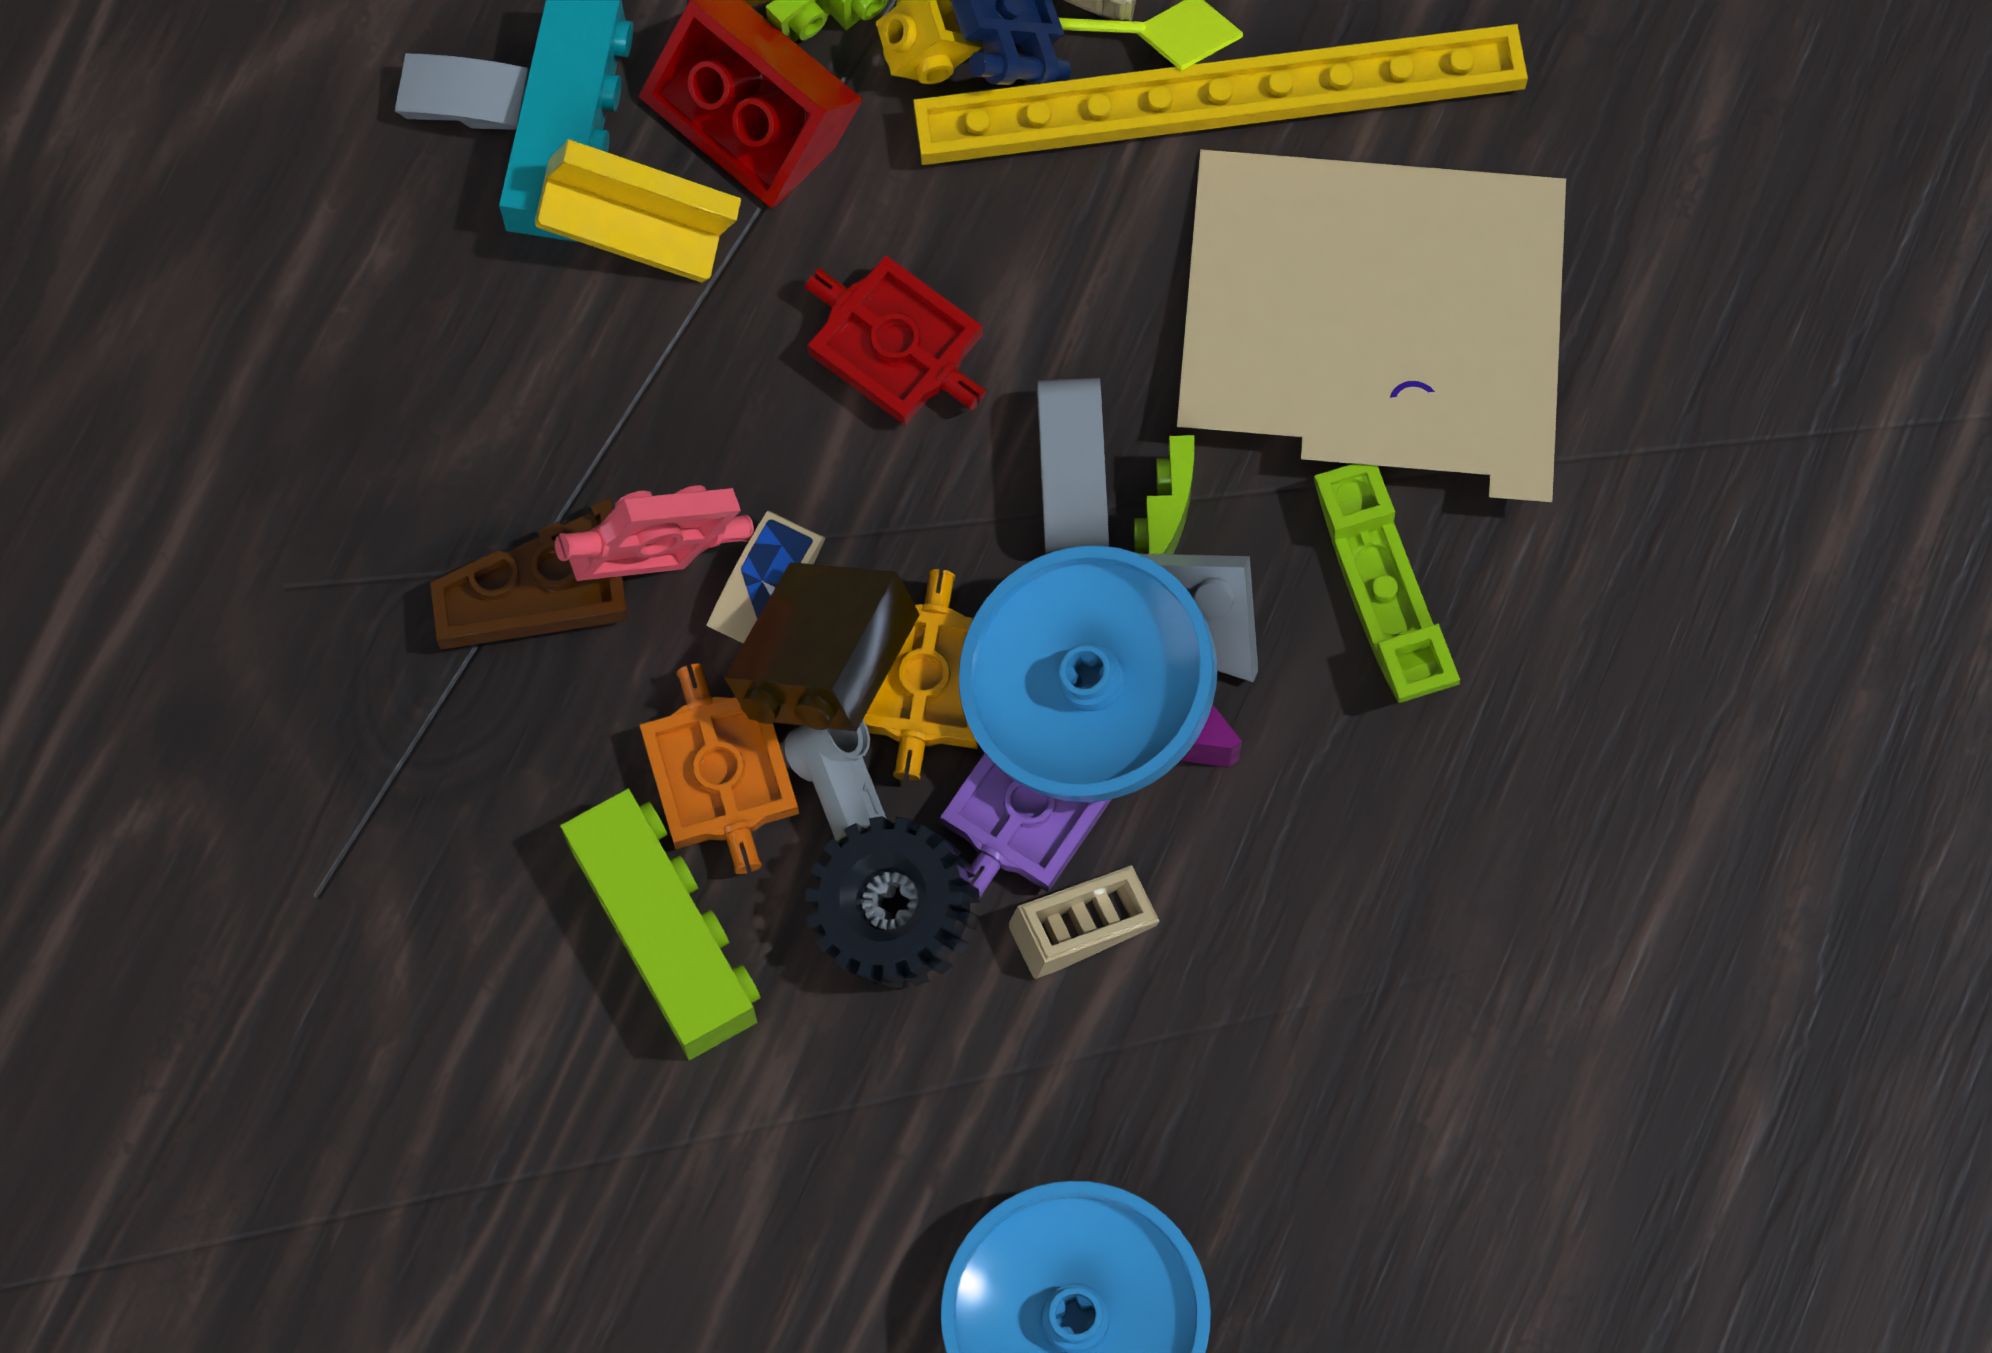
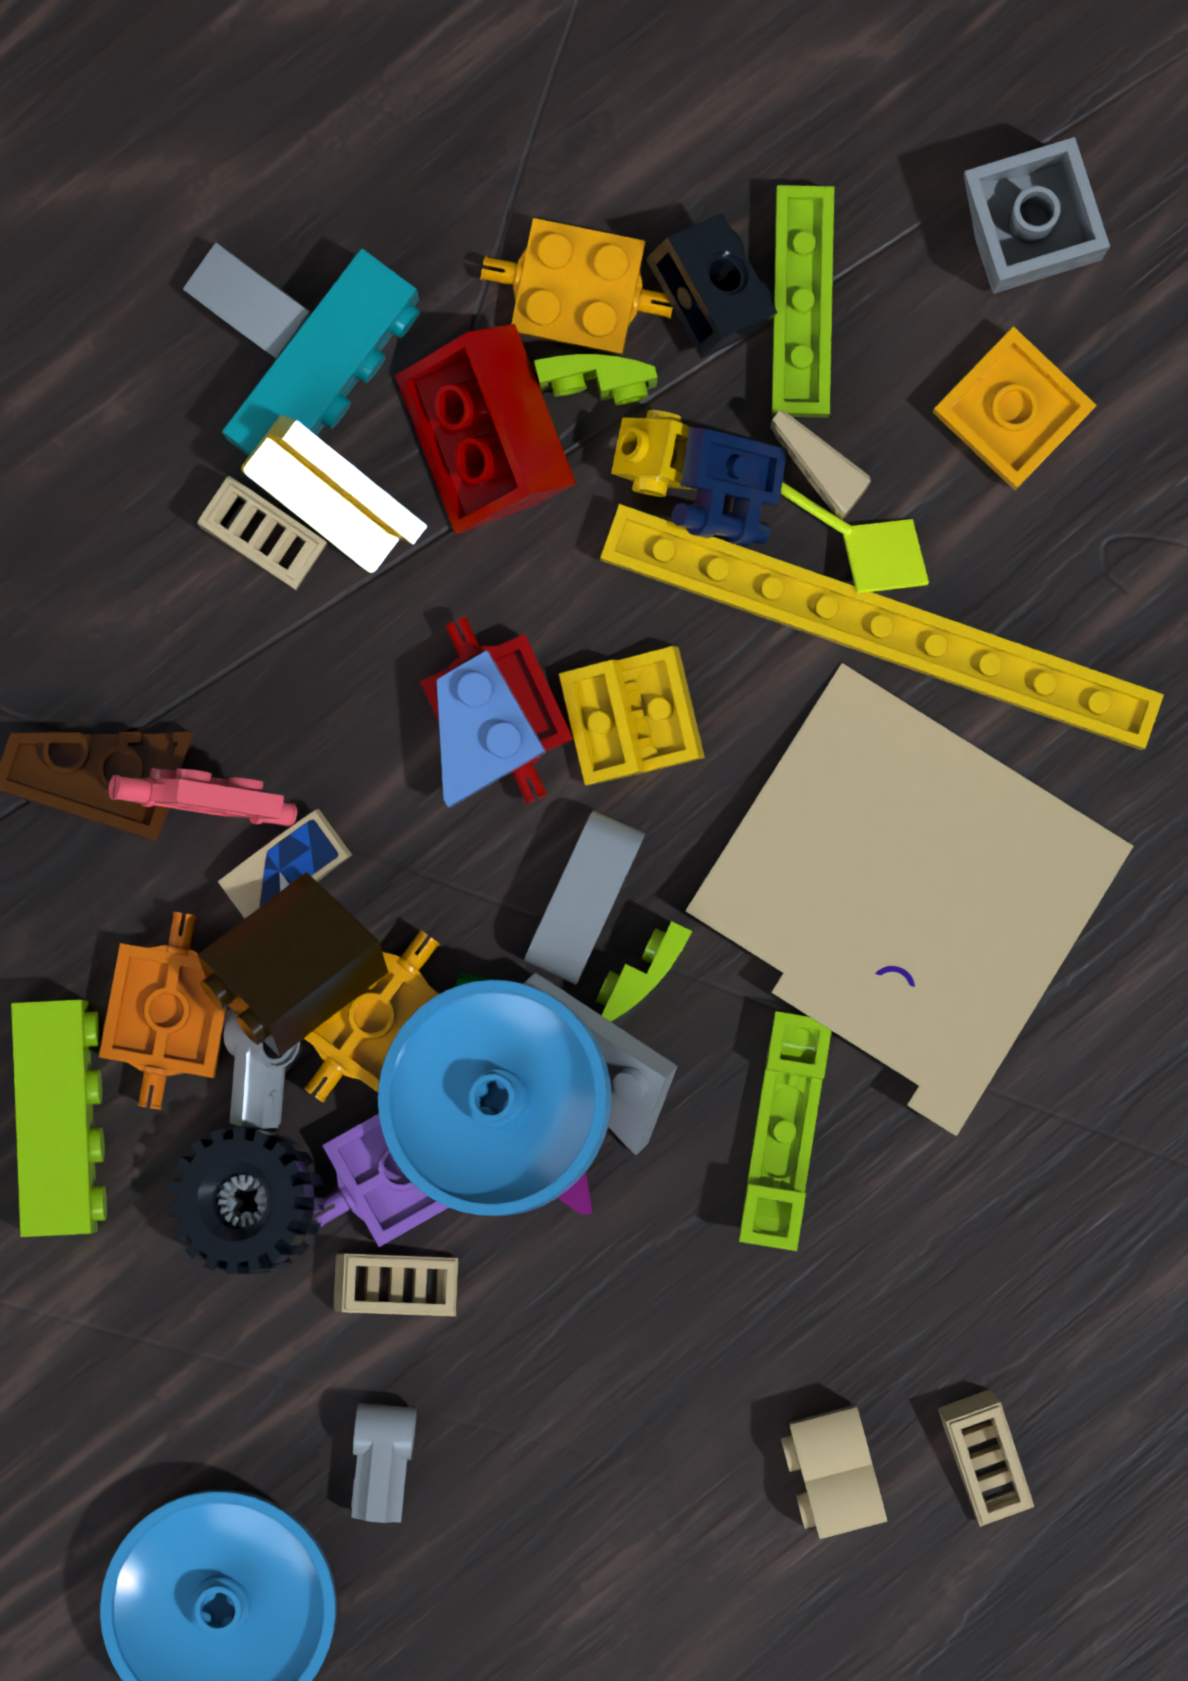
camera: 25 degrees right, 15 degrees up
(585, 270) = (220, 505): none -> tan slope
(891, 353) = (480, 729): none -> medium blue wing
(1027, 286) = (631, 715): none -> yellow slope
(1156, 1078) = (382, 1448): none -> light grey piece
(1615, 877) = (836, 1472): none -> tan brick
(1721, 796) = (970, 1412): none -> tan slope

